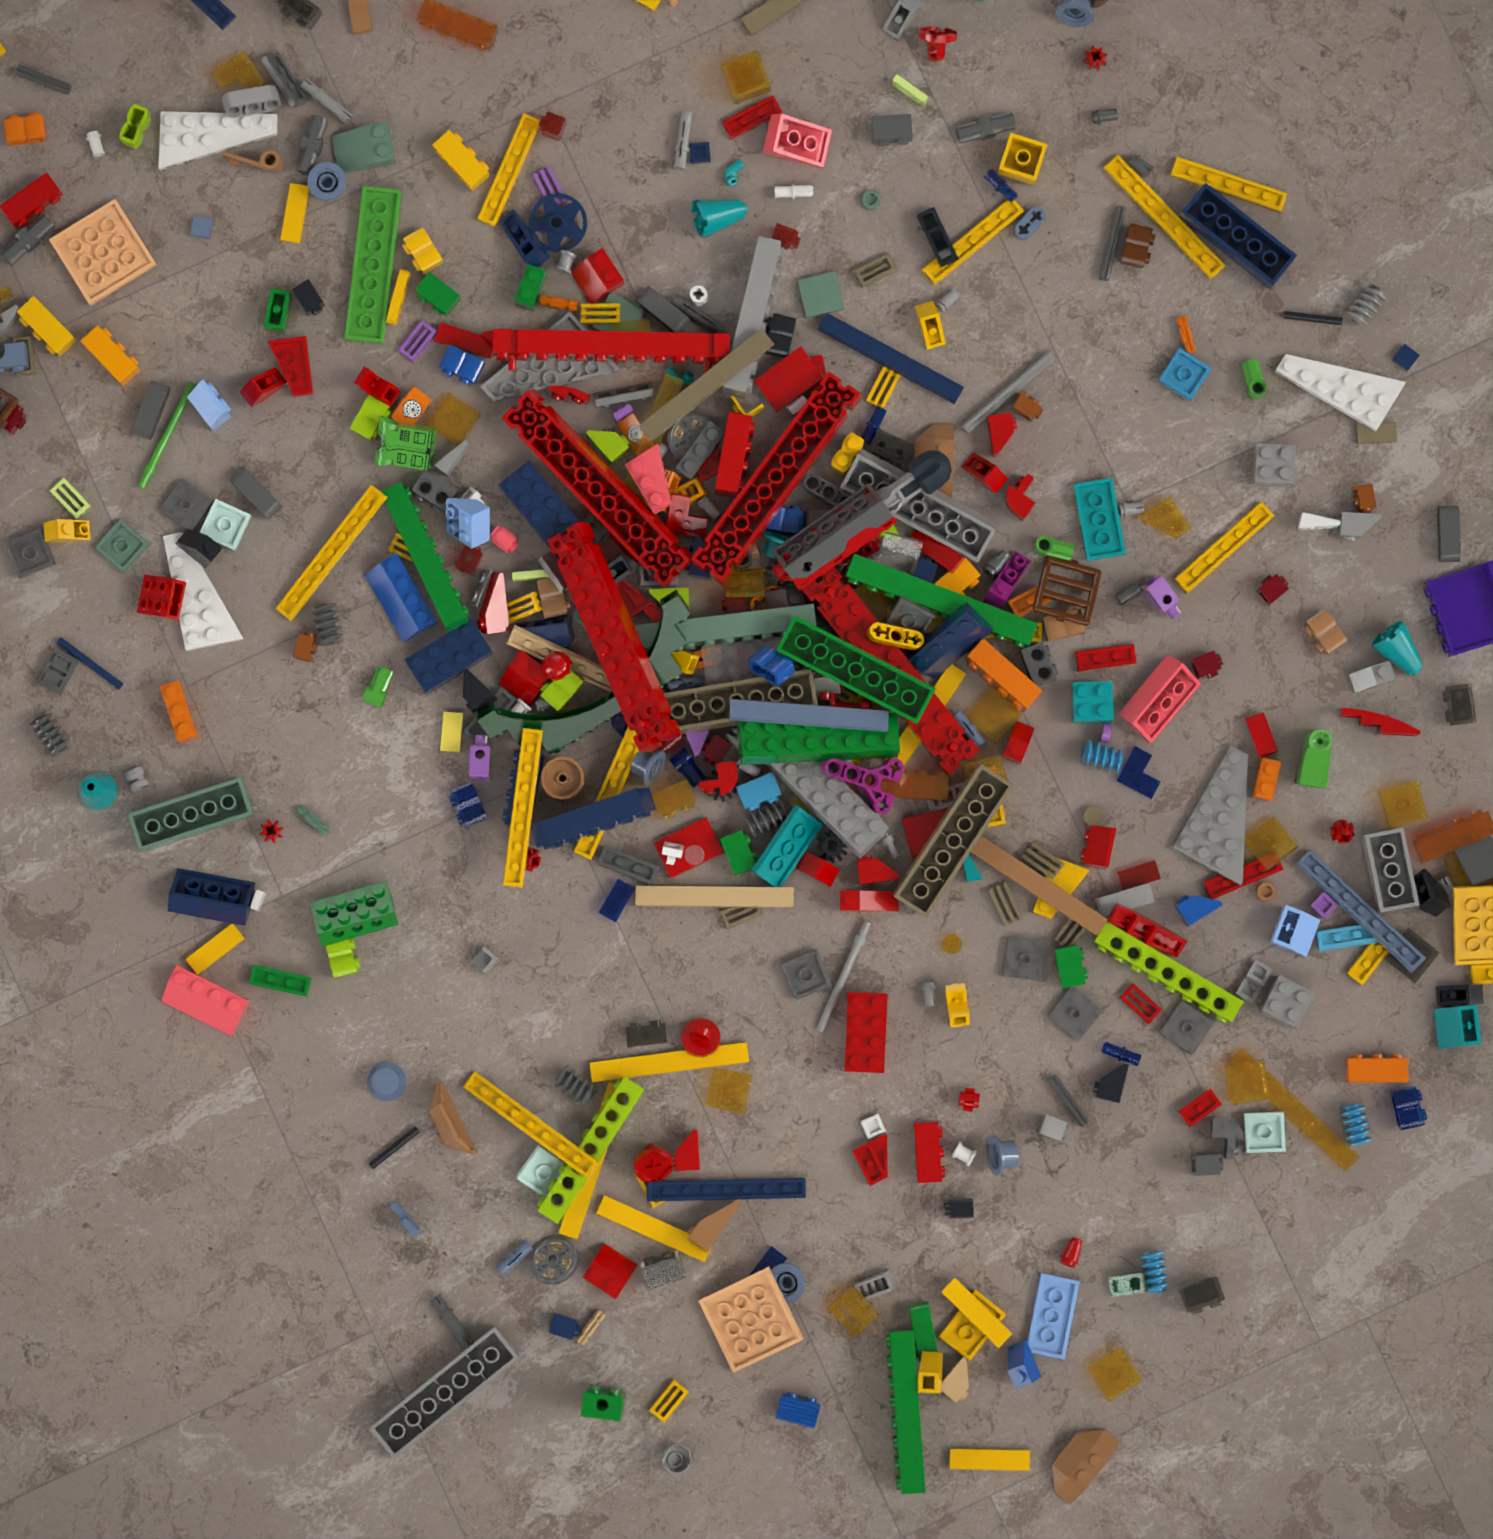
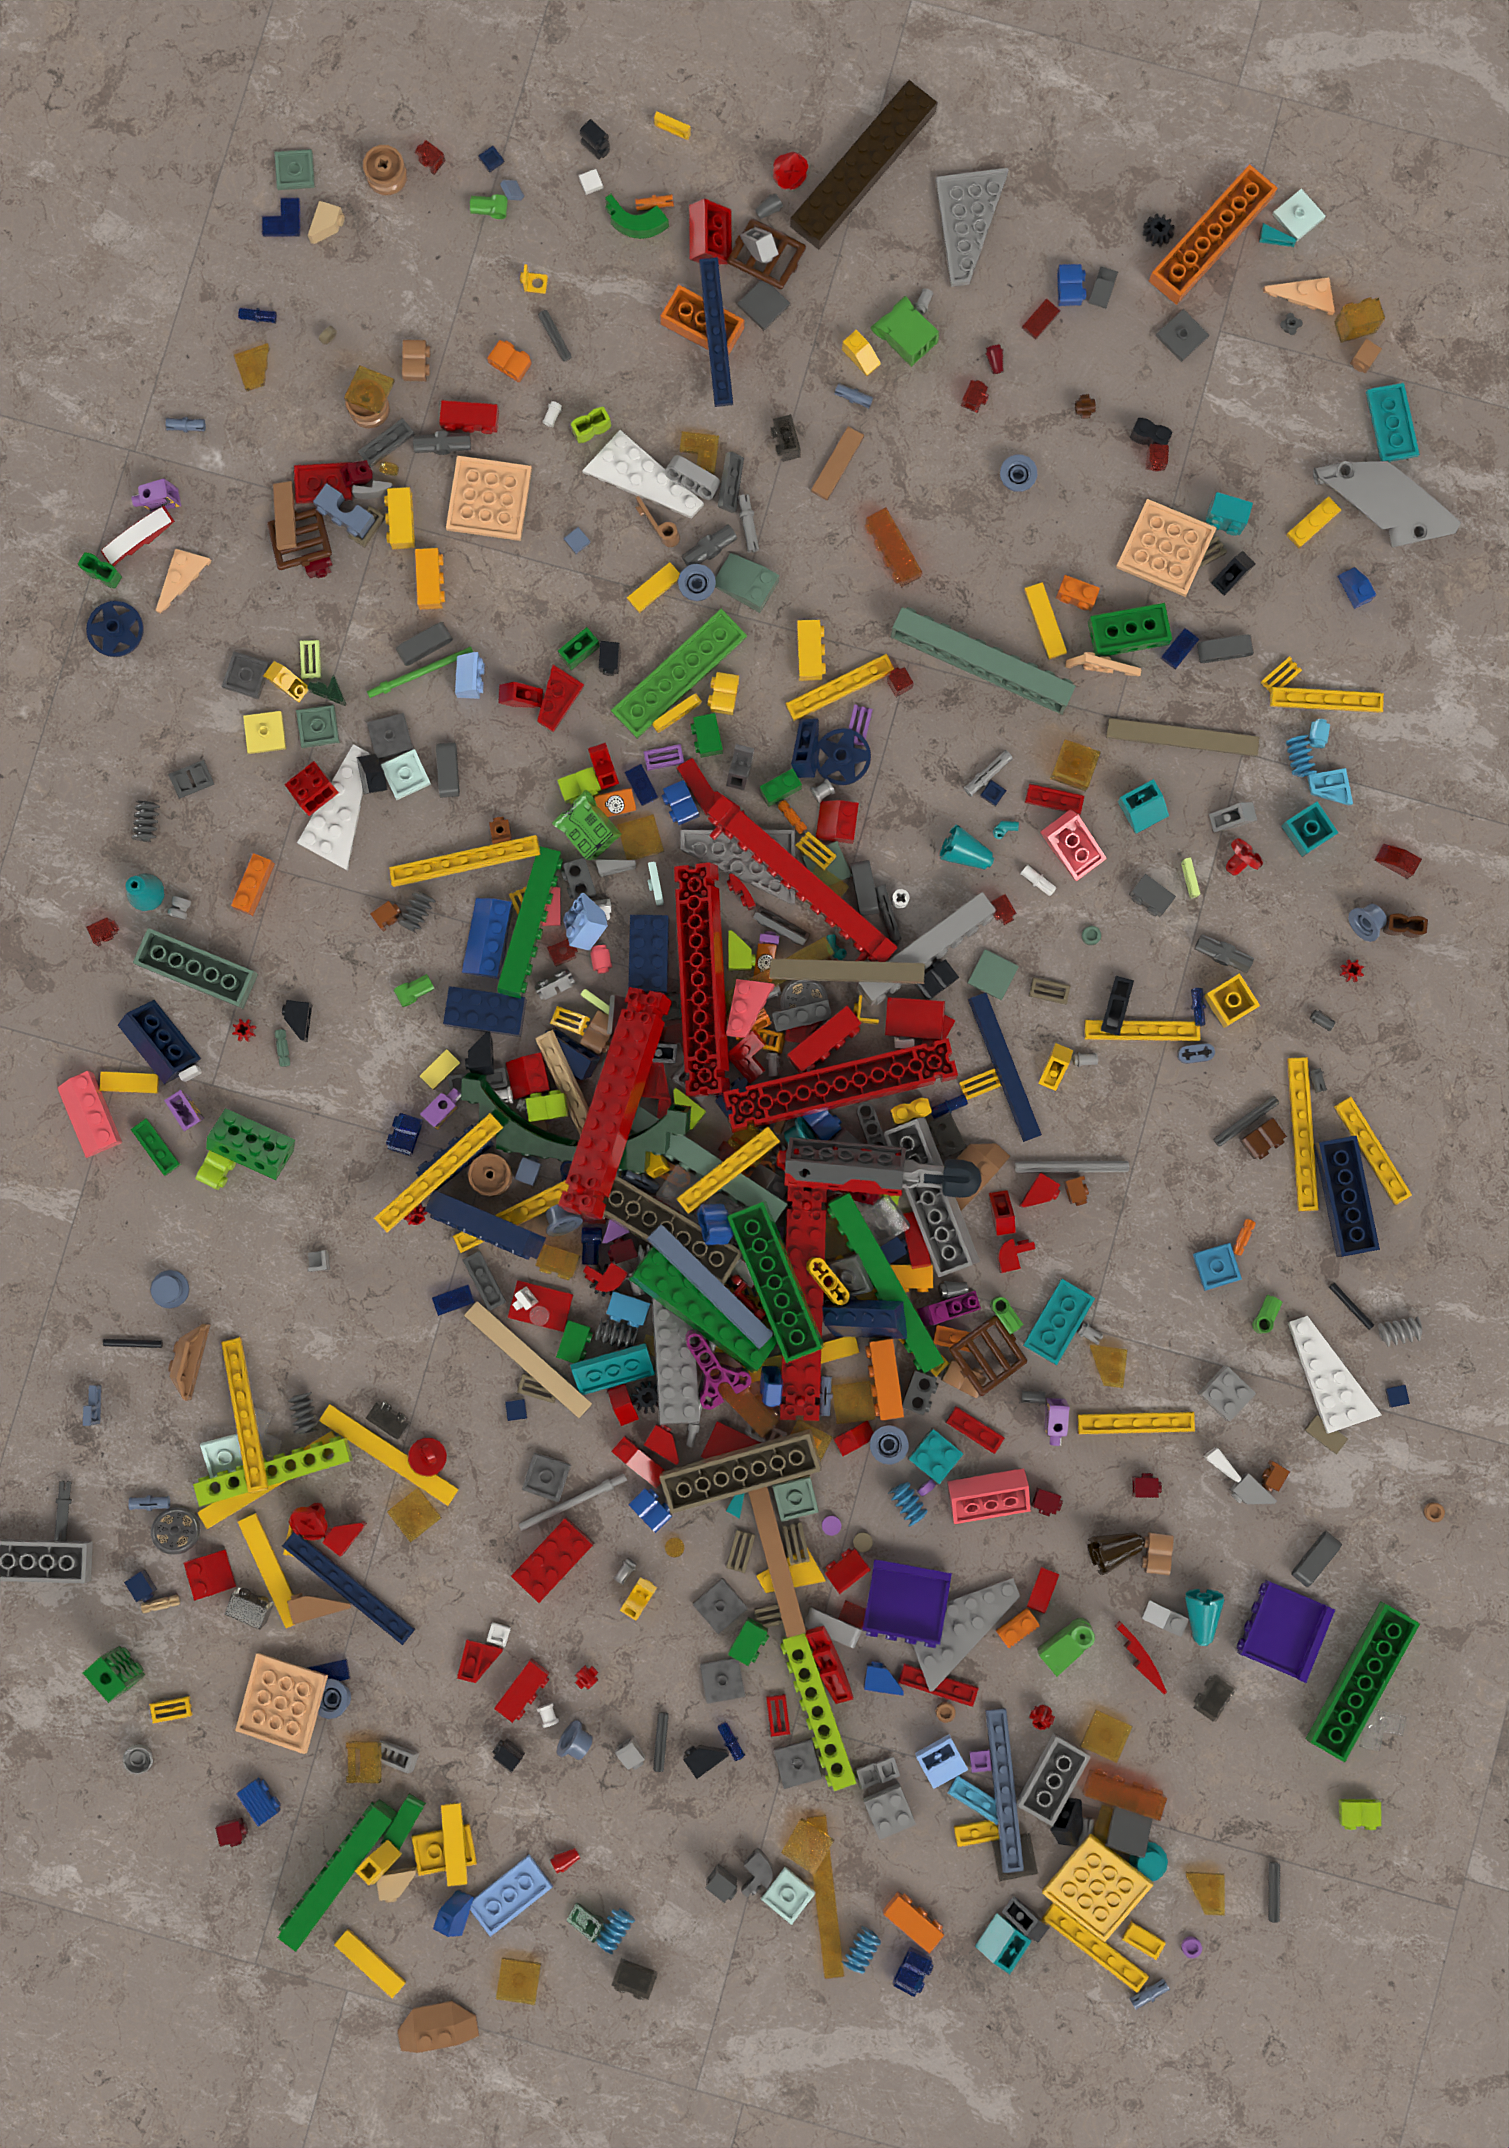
camera: 40 degrees right, 0 degrees up
(83, 586) = (264, 732): none -> light yellow plate
(89, 663) = (220, 793): dark blue bar -> none
(91, 848) = (102, 931): none -> clear red brick
(111, 510) = (331, 693): none -> clear green slope
(280, 930) = (185, 1110): none -> medium lavender torso
(305, 785) = (298, 1017): none -> black slope
(342, 512) = (500, 837): none -> dark orange brick
(418, 377) = (641, 785): none -> clear blue plate
(438, 536) = (554, 909): none -> coral tile
(485, 297) = (740, 767): none -> flat silver brick
(493, 612) = (547, 1005): slope -> none
(497, 444) = (654, 883): none -> light aqua plate
(556, 665) = (556, 1087): red hair -> none
(589, 751) = (528, 1170): none -> sand blue brick
(604, 55) = (982, 660): none -> sand green brick
(738, 943) = (516, 1409): none -> dark blue tile
(745, 616) = (728, 1170): none -> yellow tile
(797, 1451) = (231, 1832): none -> dark red brick
(826, 64) = (1144, 806): none -> teal slope
(908, 930) = (650, 1509): none -> blue brick
(920, 755) = (771, 1385): none -> blue brick
(1012, 826) = (795, 1498): none -> sand green tile
(1049, 723) = (889, 1444): none -> sand blue piece
(1057, 824) = (831, 1525): none -> medium lavender tile
(1133, 776) = (920, 1537): clear blue tile -> none
(1165, 832) = (907, 1603): none -> dark purple panel
(1200, 1107) = (755, 1834): red plate -> none
(1270, 843) = (979, 1679): clear yellow plate -> none
(1288, 659) = (1113, 1550): none -> dark brown cone

